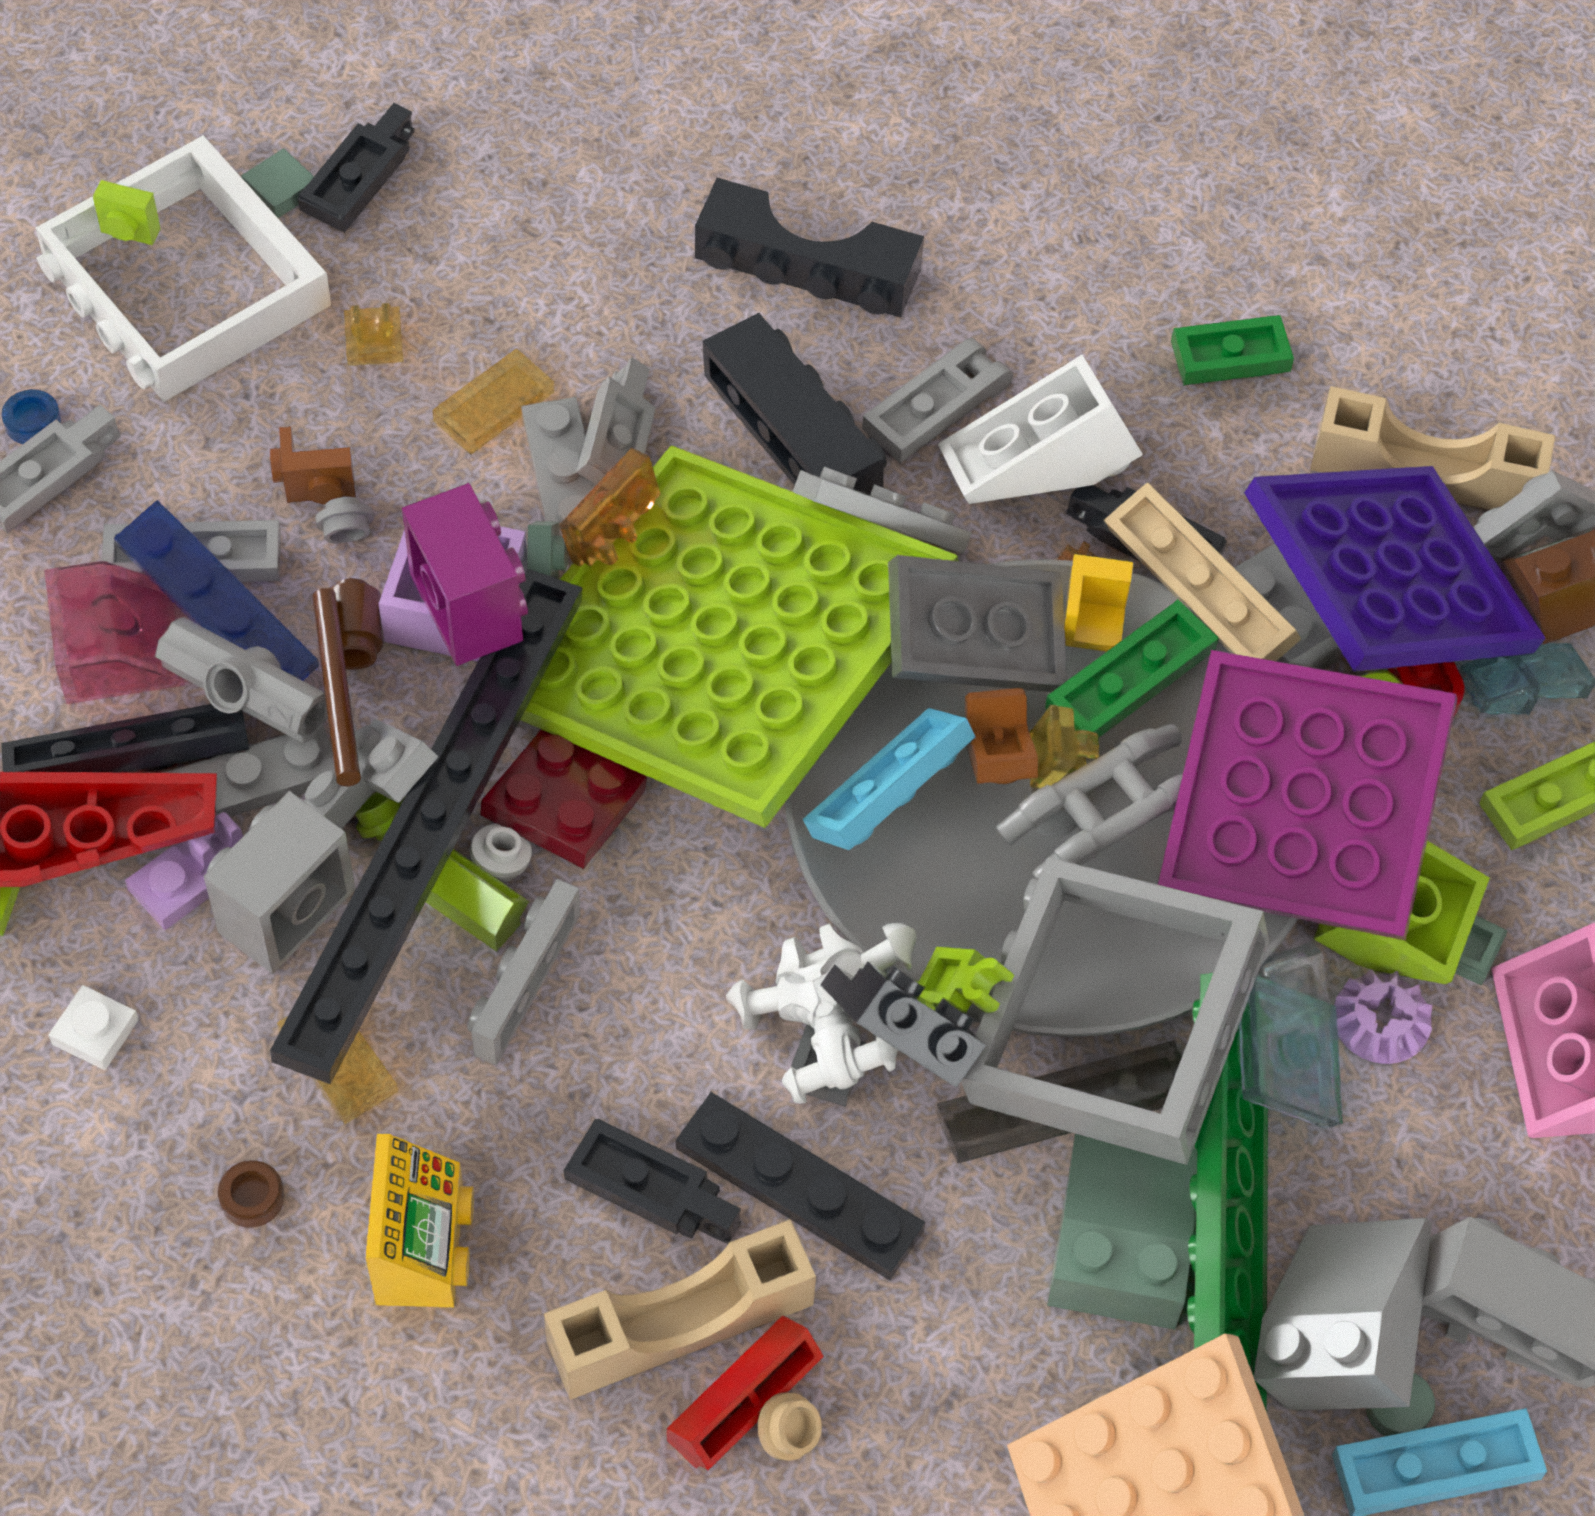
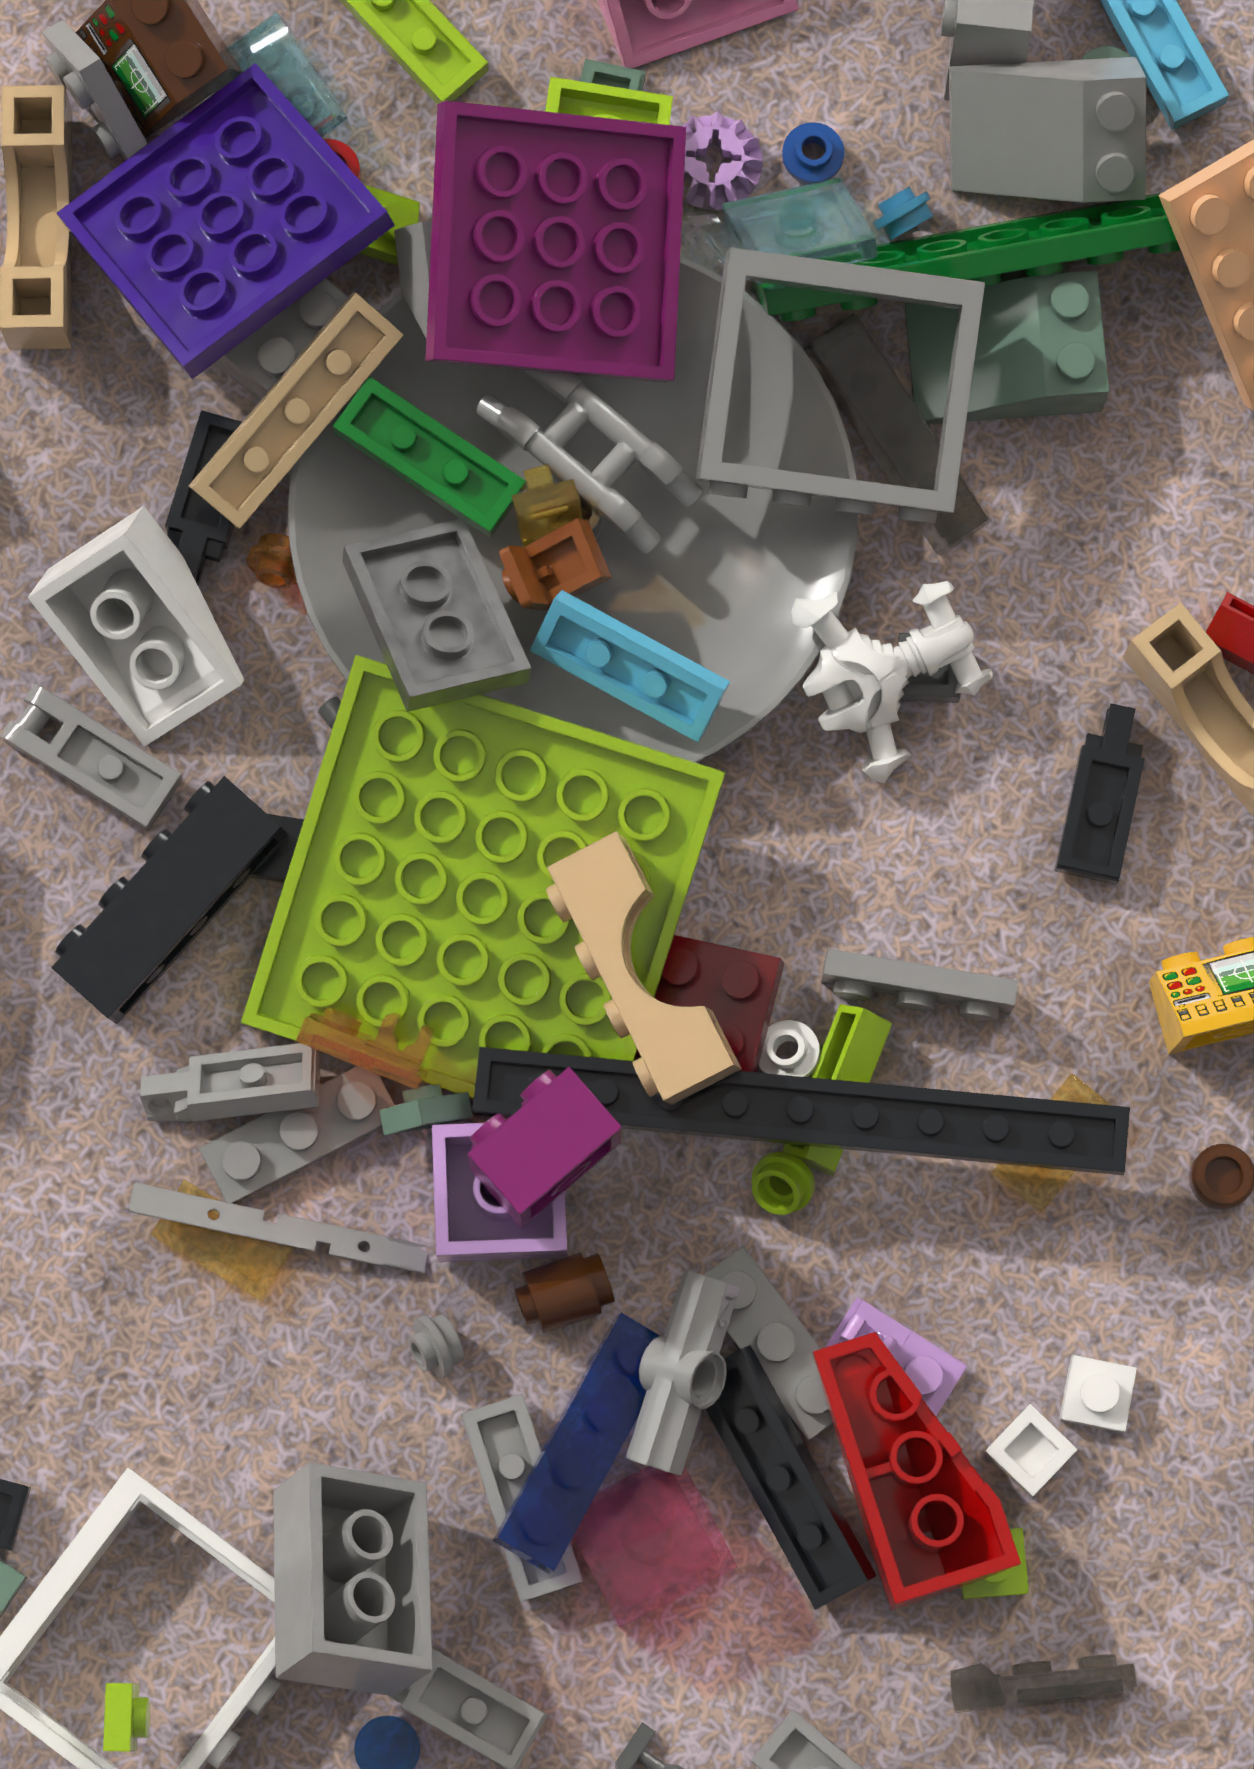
camera: 105 degrees left, 20 degrees up
(64, 951) = (1030, 1450): none -> white plate
(165, 383) = (351, 1580): none -> light grey brick
(279, 881) = (911, 1248): light grey brick -> none
(312, 473) = (390, 1388): dark orange bracket -> none
(336, 688) = (678, 1261): reddish brown bar -> none
(373, 335) = (170, 1403): clear yellow tile -> none
(387, 763) = (744, 1202): light grey plate -> none
(503, 409) = (287, 1231): none -> light grey piece
(668, 685) = (604, 897): none -> tan arch
(800, 1185) = (1055, 664): black plate -> none
(883, 508) = (290, 763): light grey plate -> none
(897, 1014) = (918, 576): plate -> none
(963, 978) = (847, 543): lime plate -> none
(1096, 602) = (355, 510): yellow panel -> none
(1292, 1164) = (903, 212): none -> dark azure plate
(1370, 1119) = (806, 169): none -> blue plate

